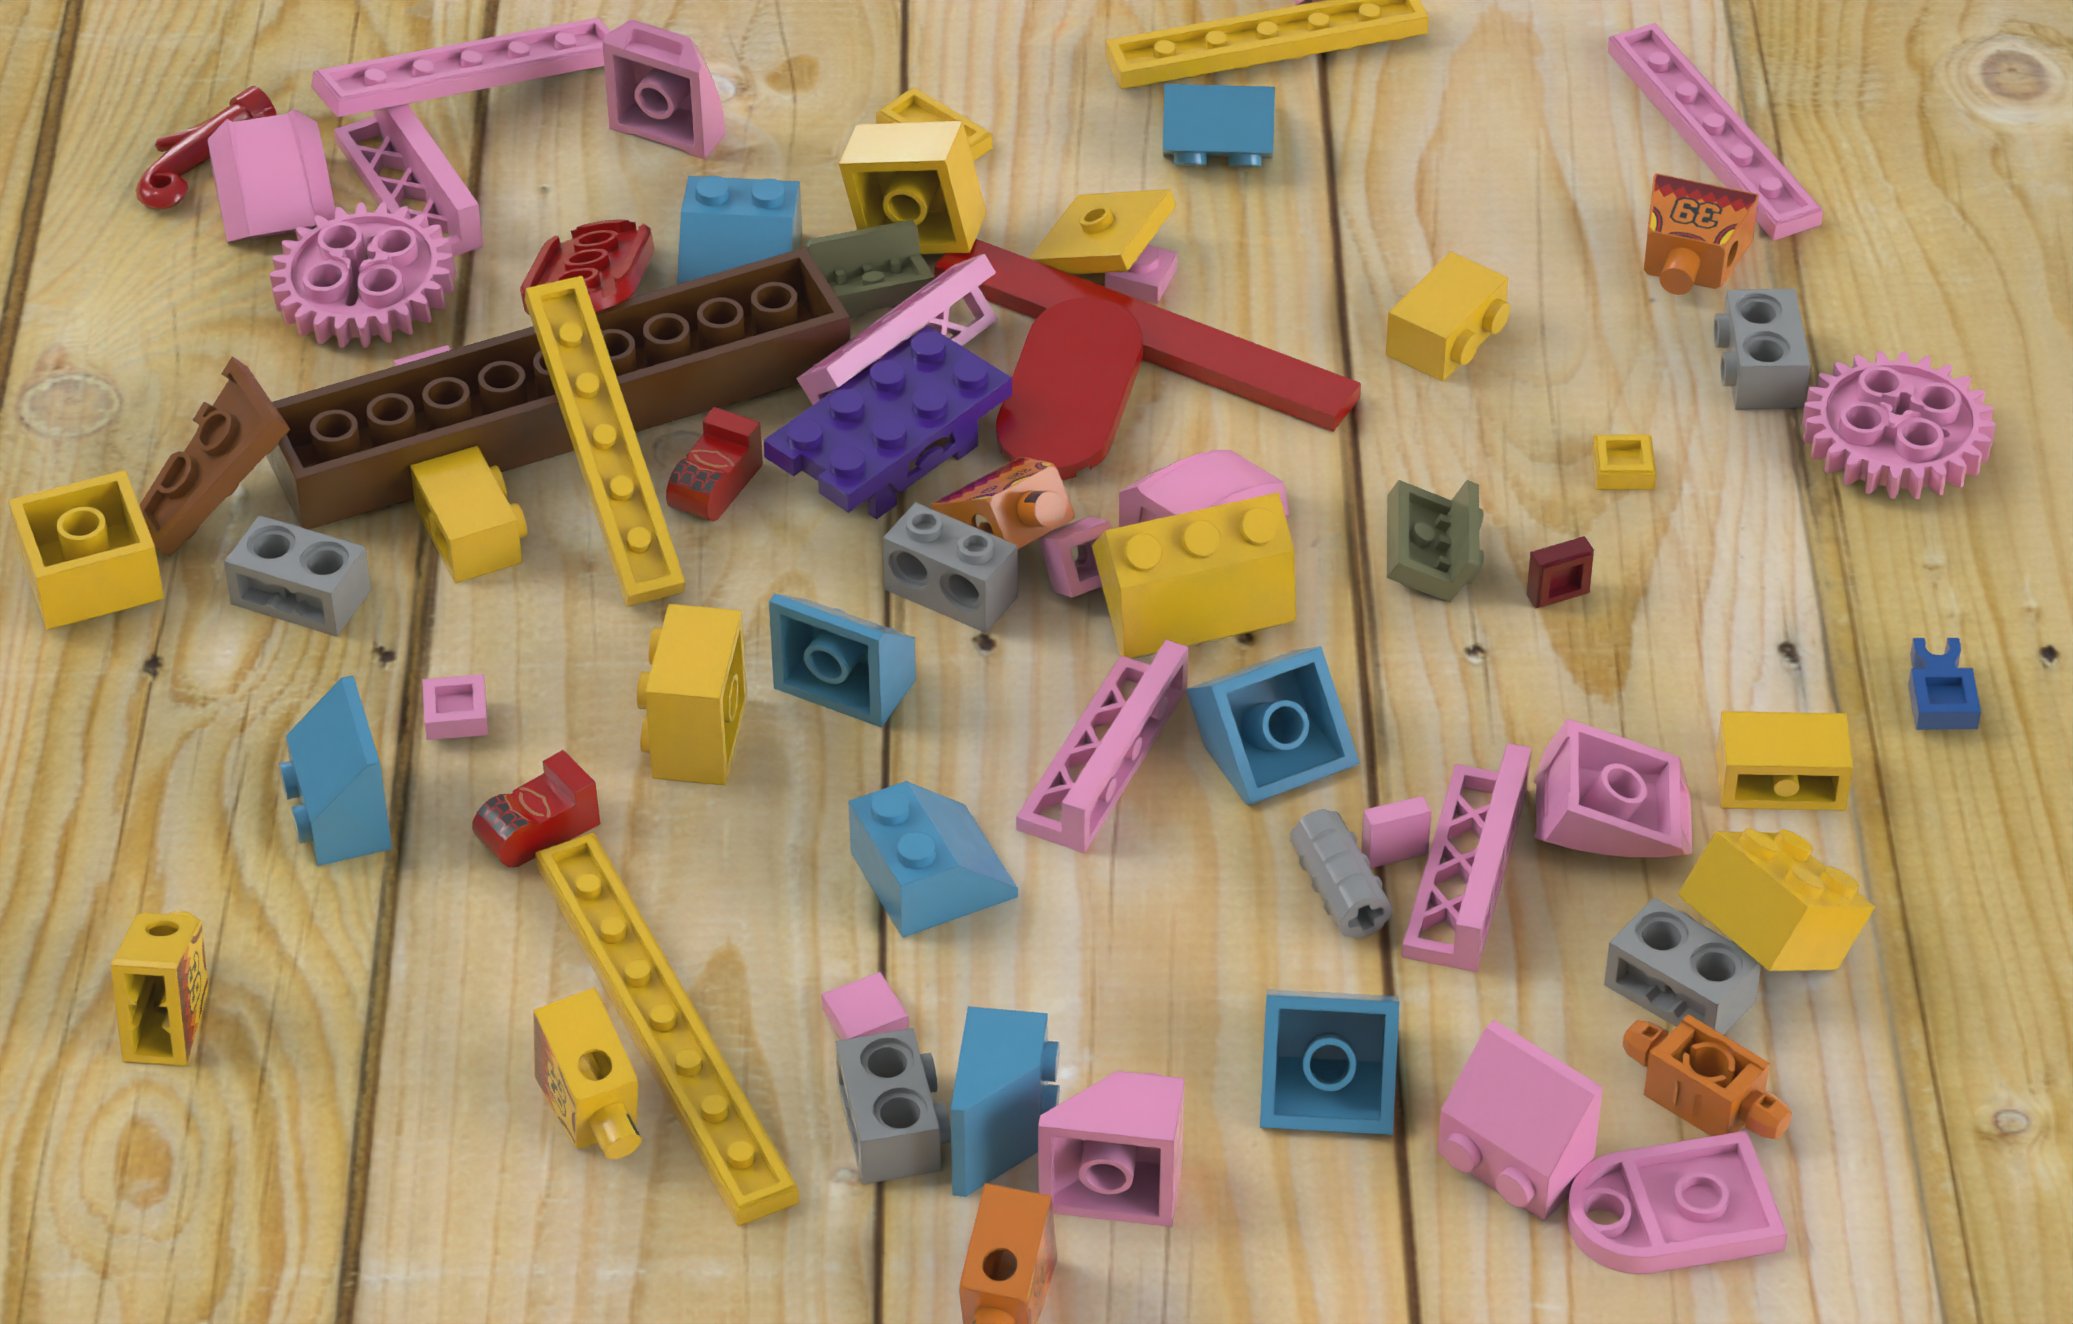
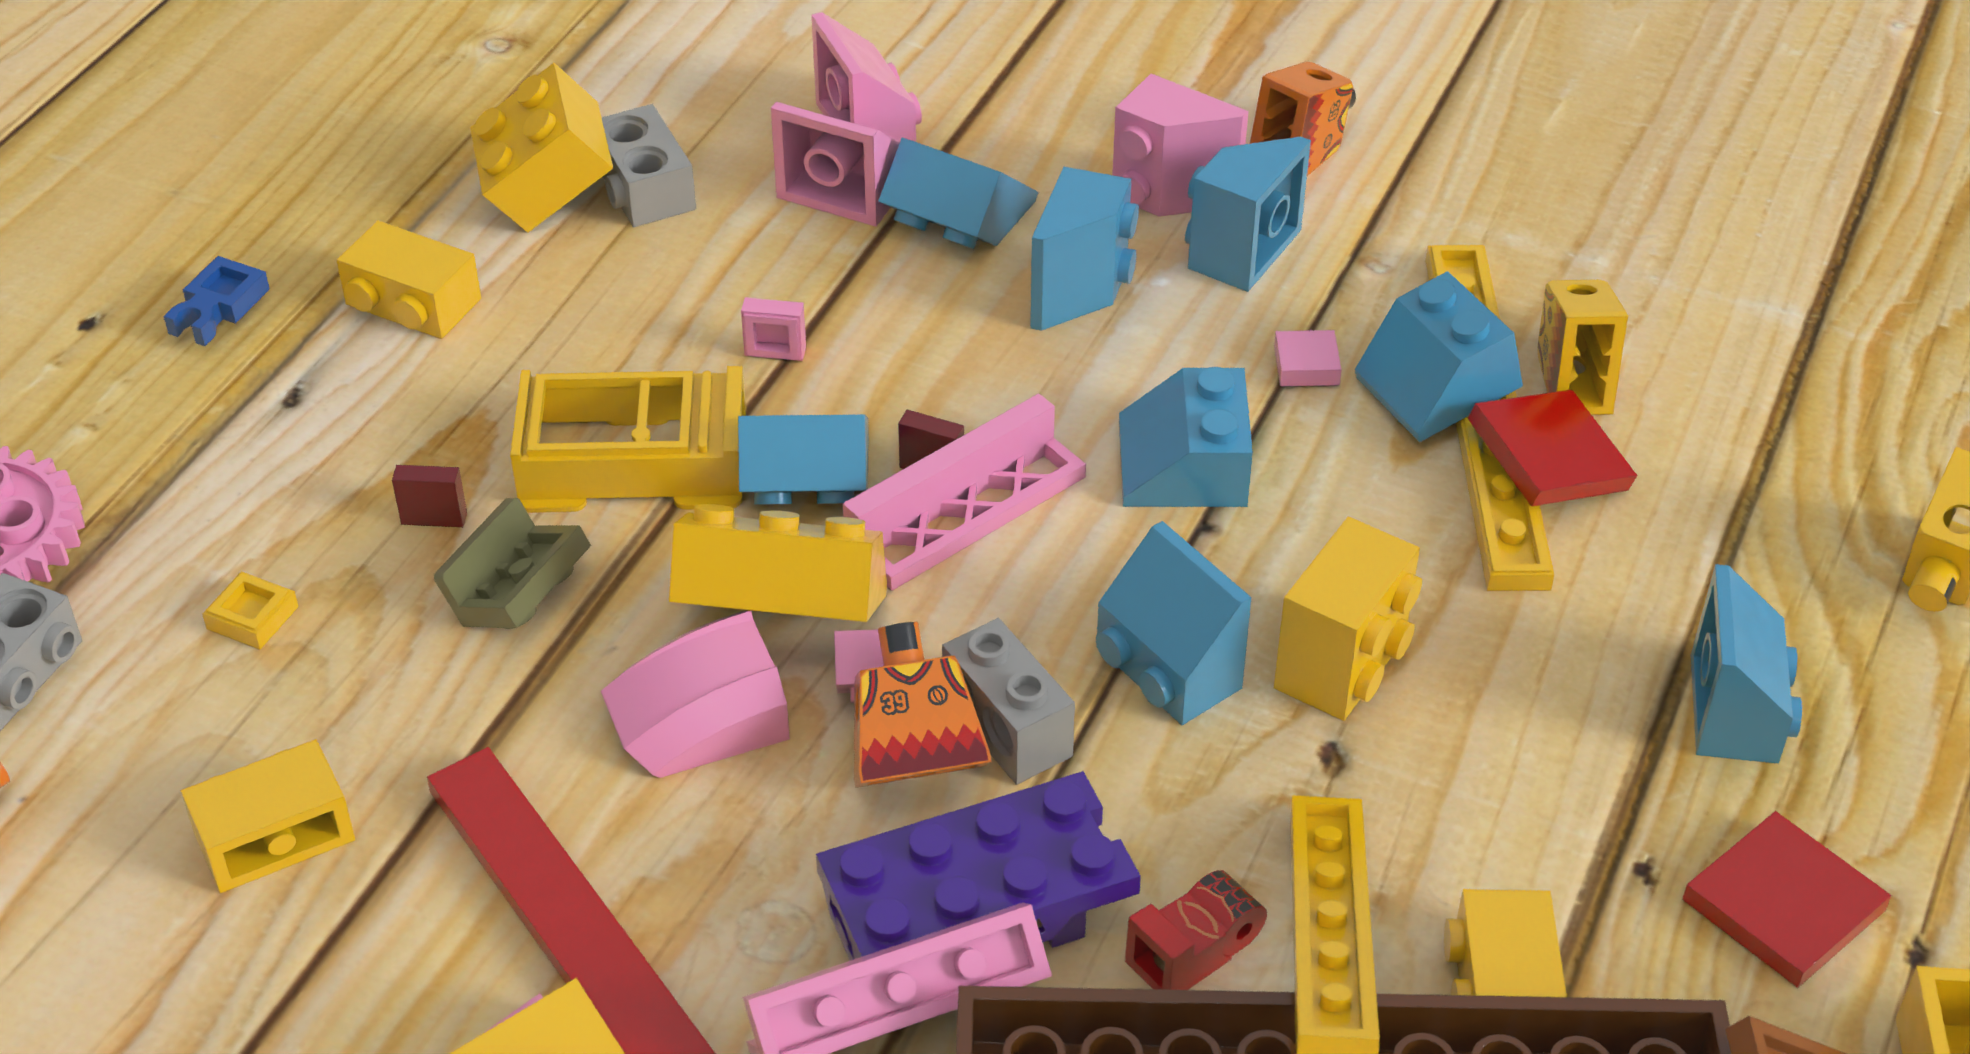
camera: 155 degrees left, 0 degrees up
(264, 656) = (1786, 898): none -> red tile
(298, 575) = (1729, 950): light grey brick -> none
(455, 707) = (1590, 746): bright pink plate -> none
(539, 813) = (1539, 605): red leg -> none
(576, 950) = (1552, 447): none -> red tile
(712, 1007) = (1439, 357): none -> dark azure slope
(890, 1105) = (1327, 266): light grey brick -> none
(1071, 385) = (729, 889): red tile -> none
(1143, 989) = (1081, 247): none -> dark azure slope
(1162, 766) = (923, 435): none -> dark red tile
(1340, 873) = (845, 315): light grey axle -> none
(1457, 995) = (830, 163): none -> bright pink slope
(1458, 718) = (692, 470): none -> yellow piece
(1480, 868) = (710, 294): bright pink fence -> none
(1611, 795) = (586, 288): bright pink slope -> none
(1676, 1206) = (759, 57): bright pink tile -> none
(1706, 1078) = (694, 98): orange piece -> none

